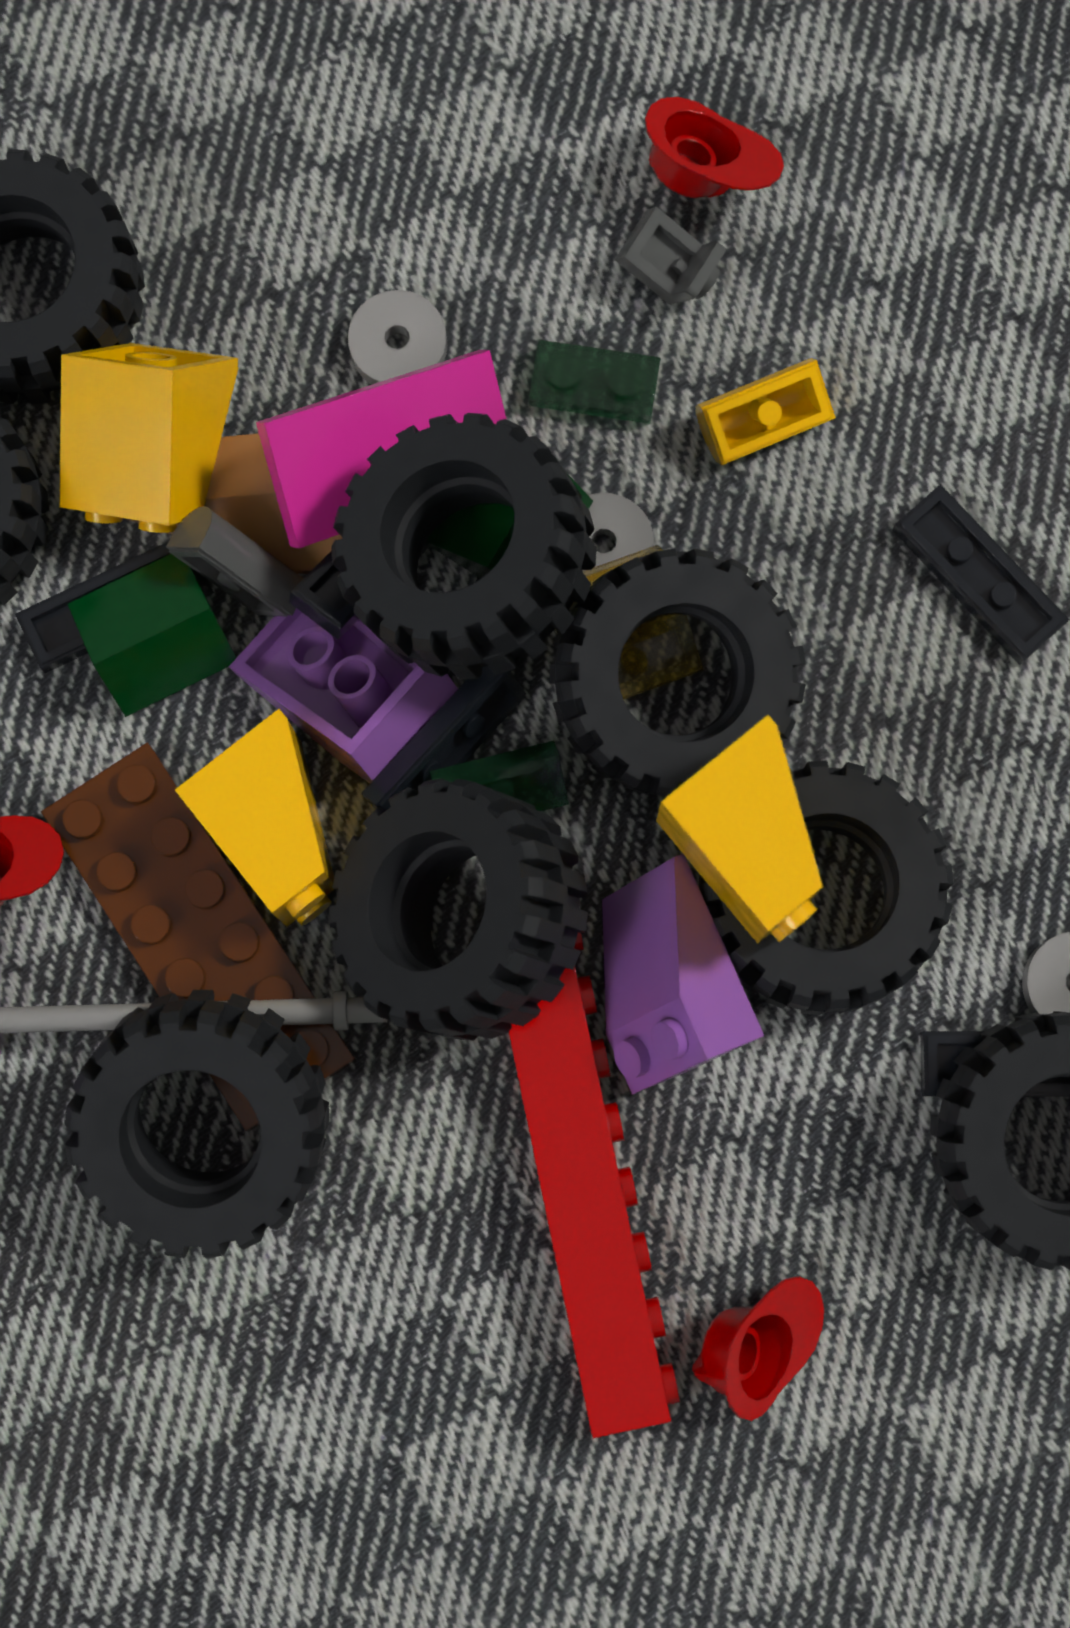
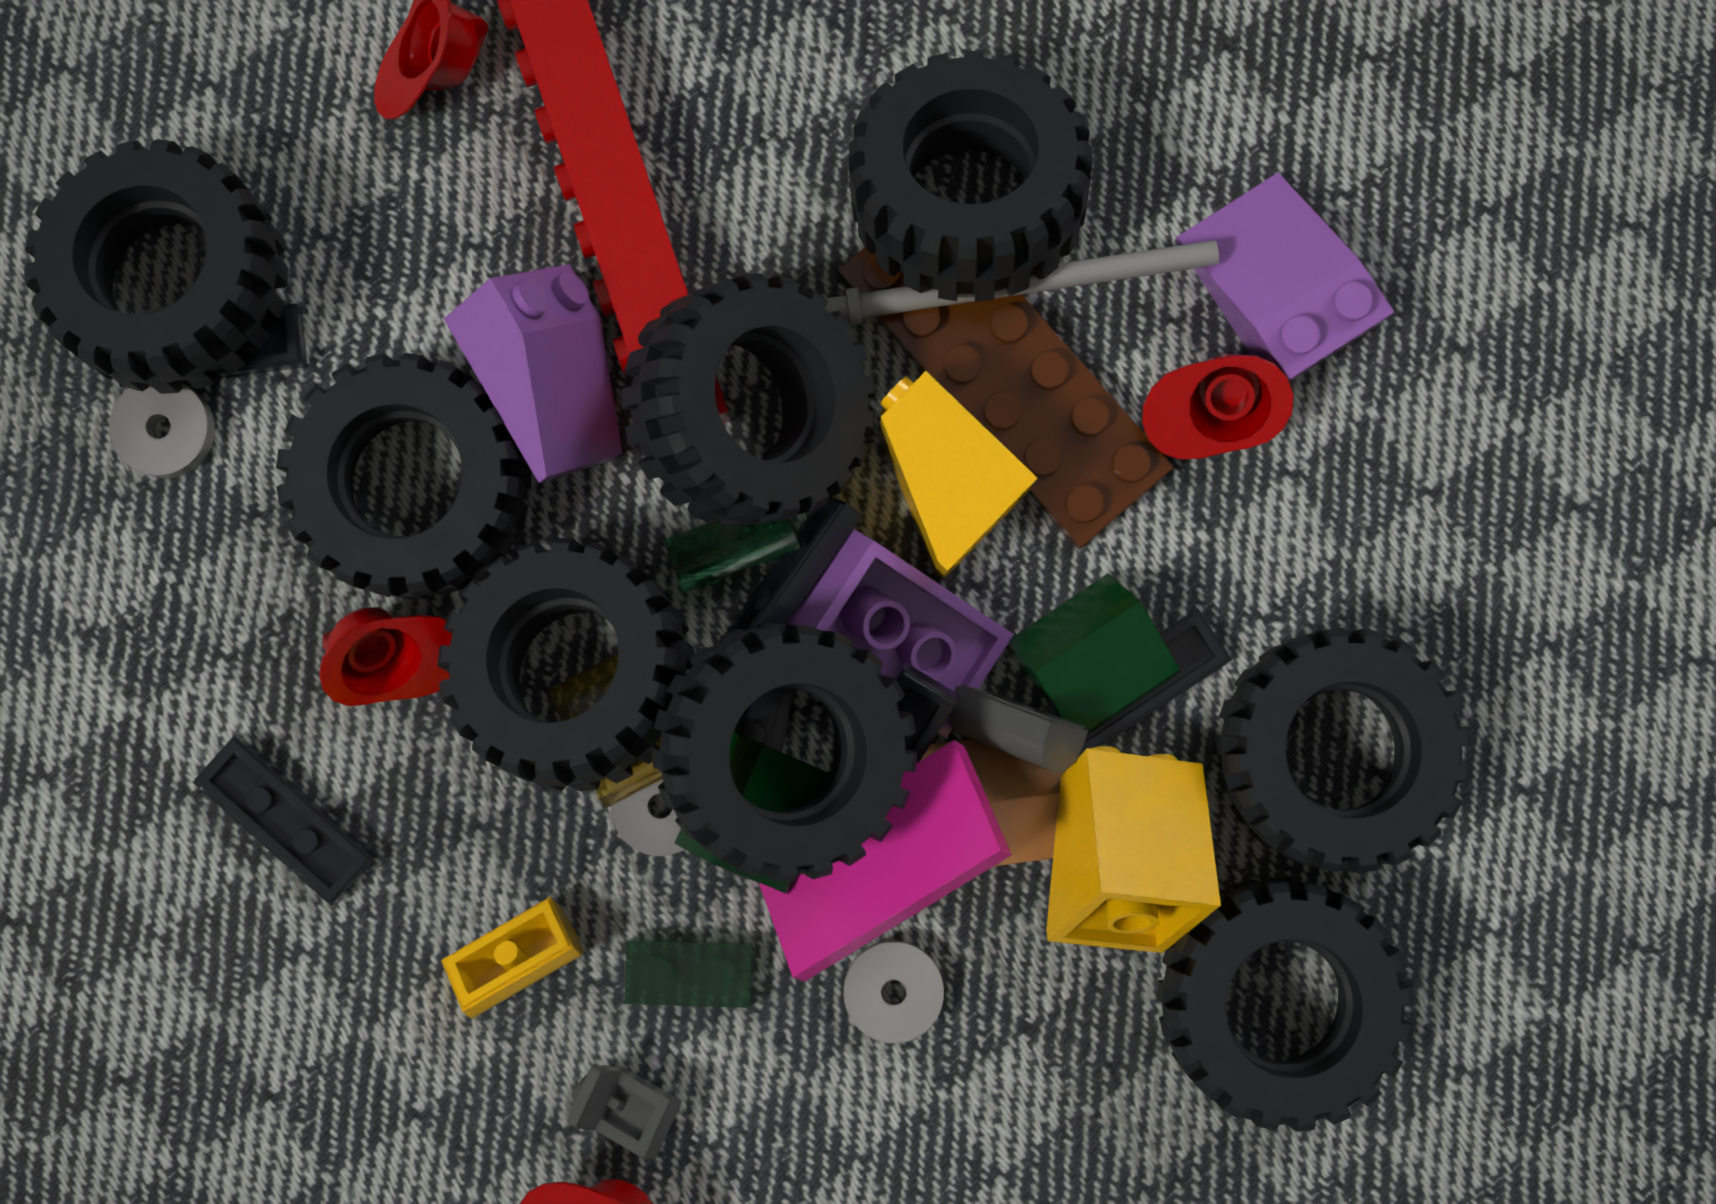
camera: 170 degrees right, 5 degrees up
(748, 834) = (467, 490): yellow slope -> none
(864, 716) = (382, 657): none -> red piece

